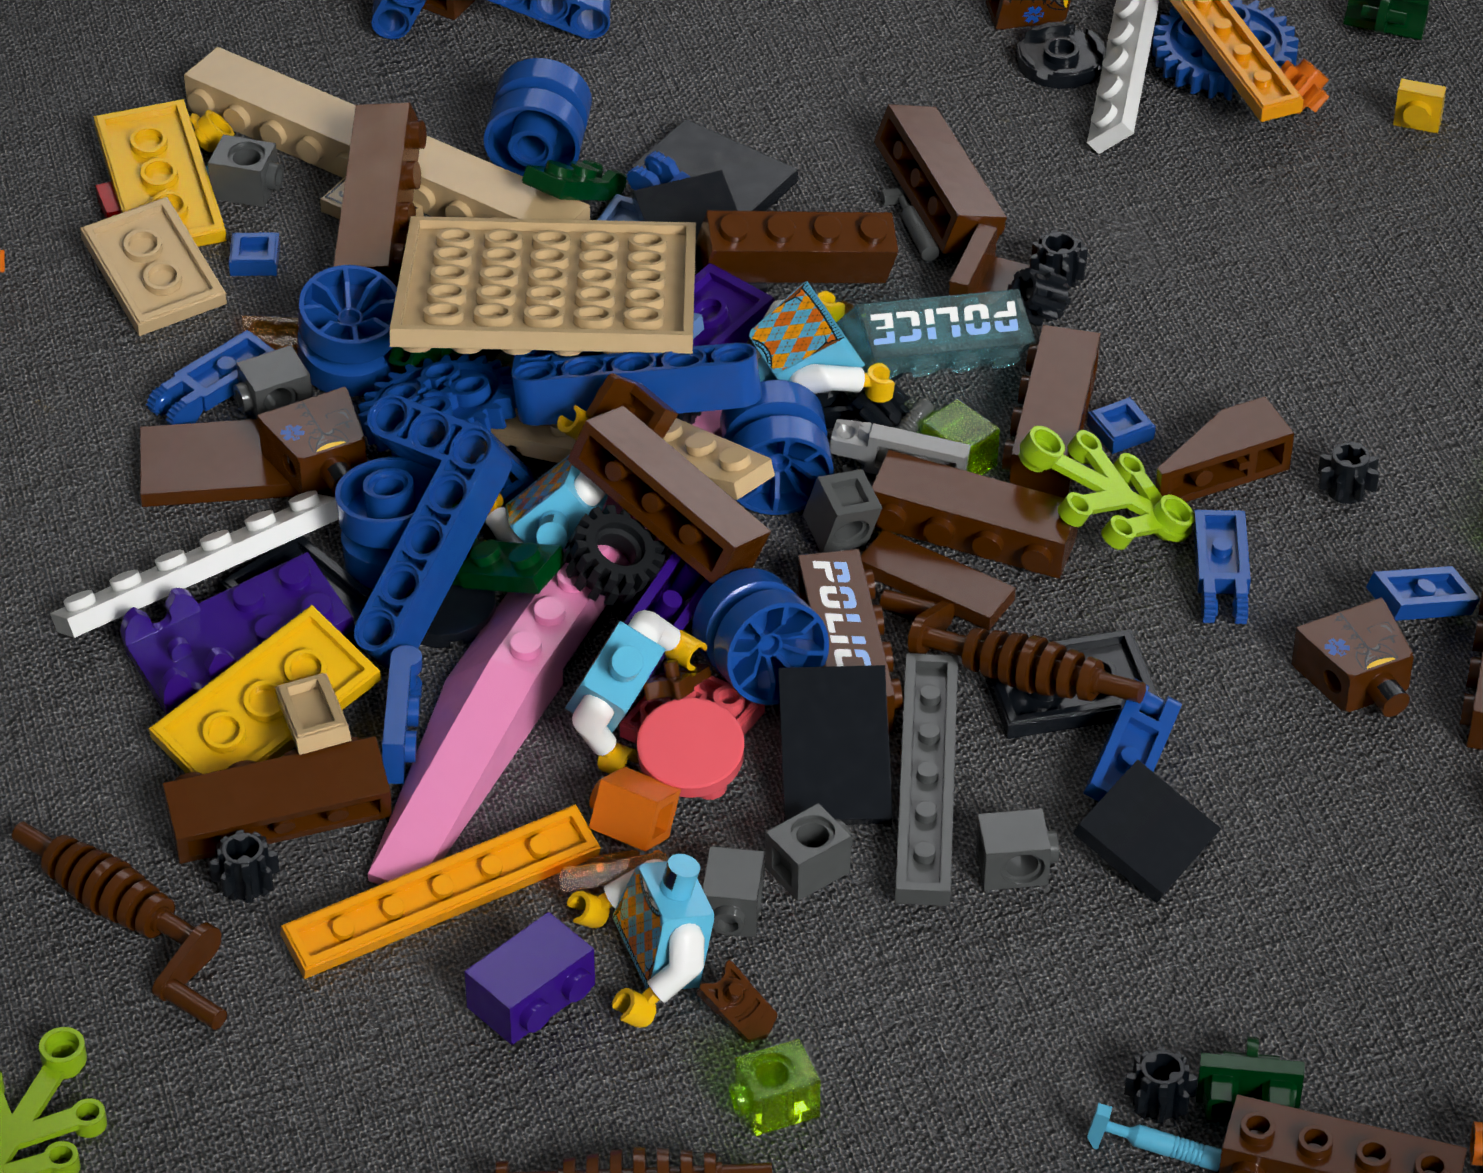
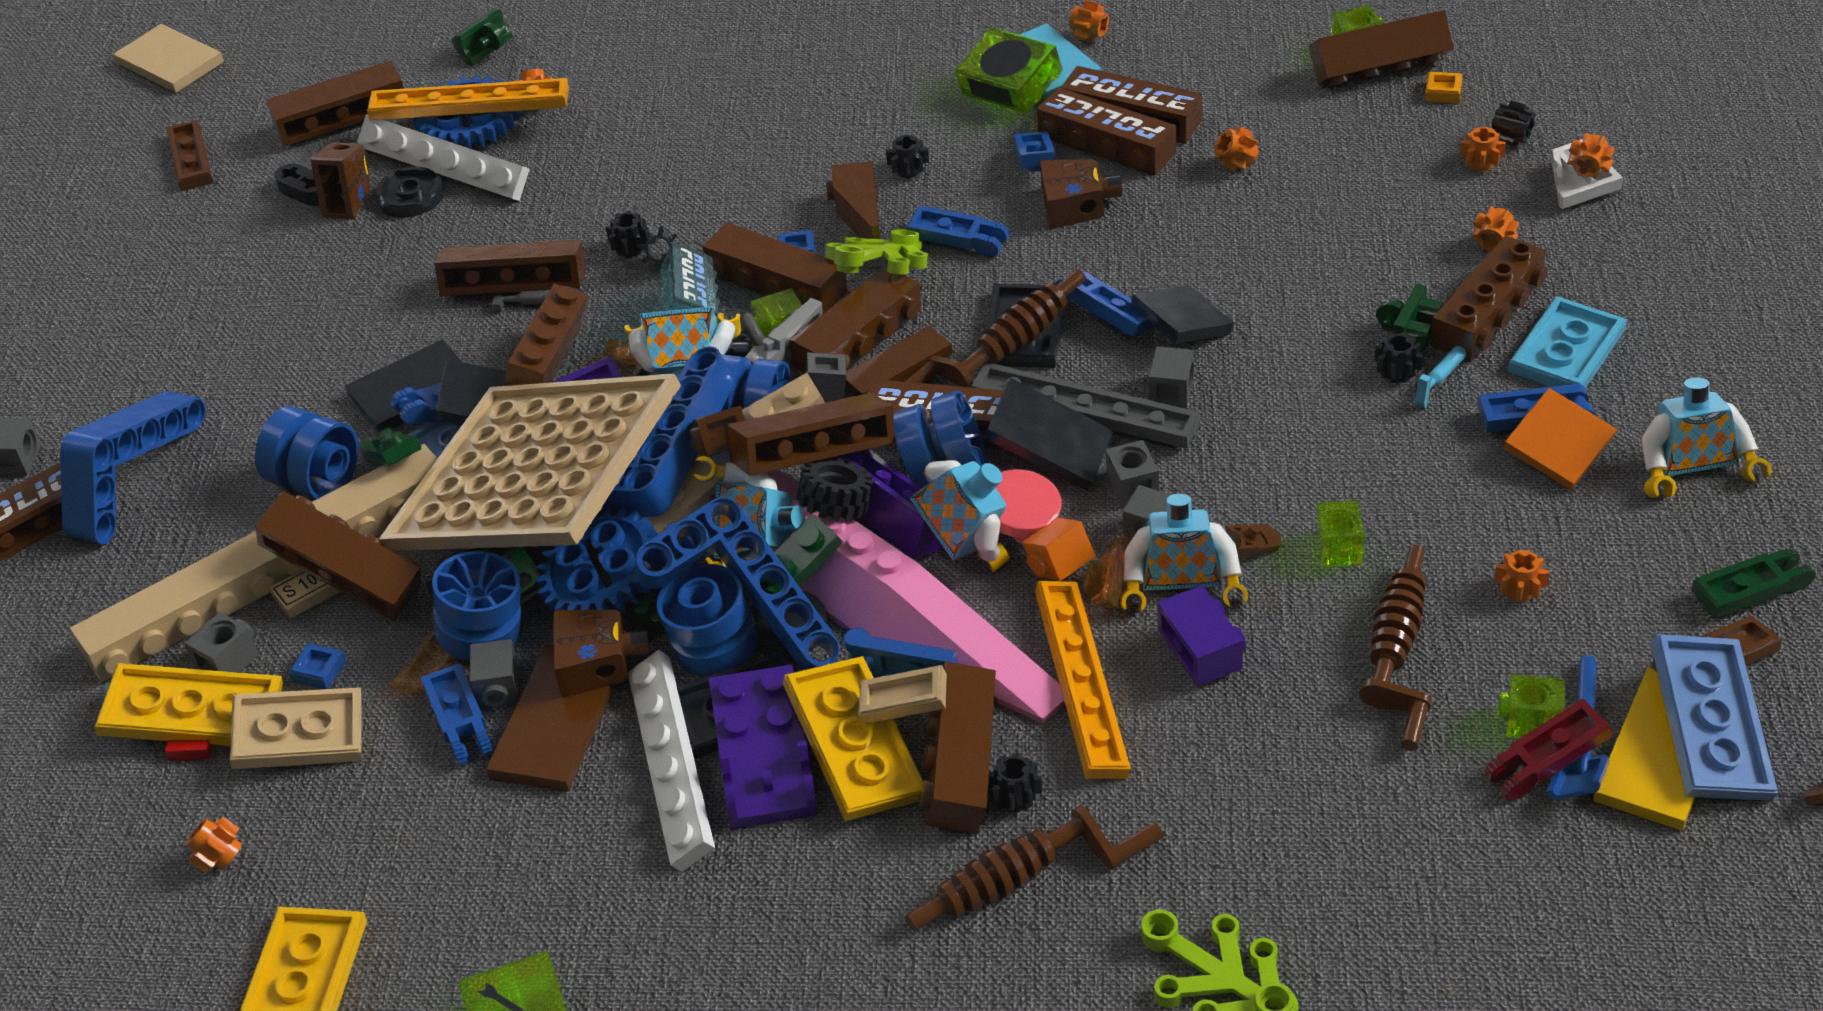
camera: 65 degrees left, 0 degrees up
(210, 129) = (157, 658): yellow plate -> none
(980, 269) = (619, 276): panel -> none
(1419, 105) = (586, 46): yellow plate -> none

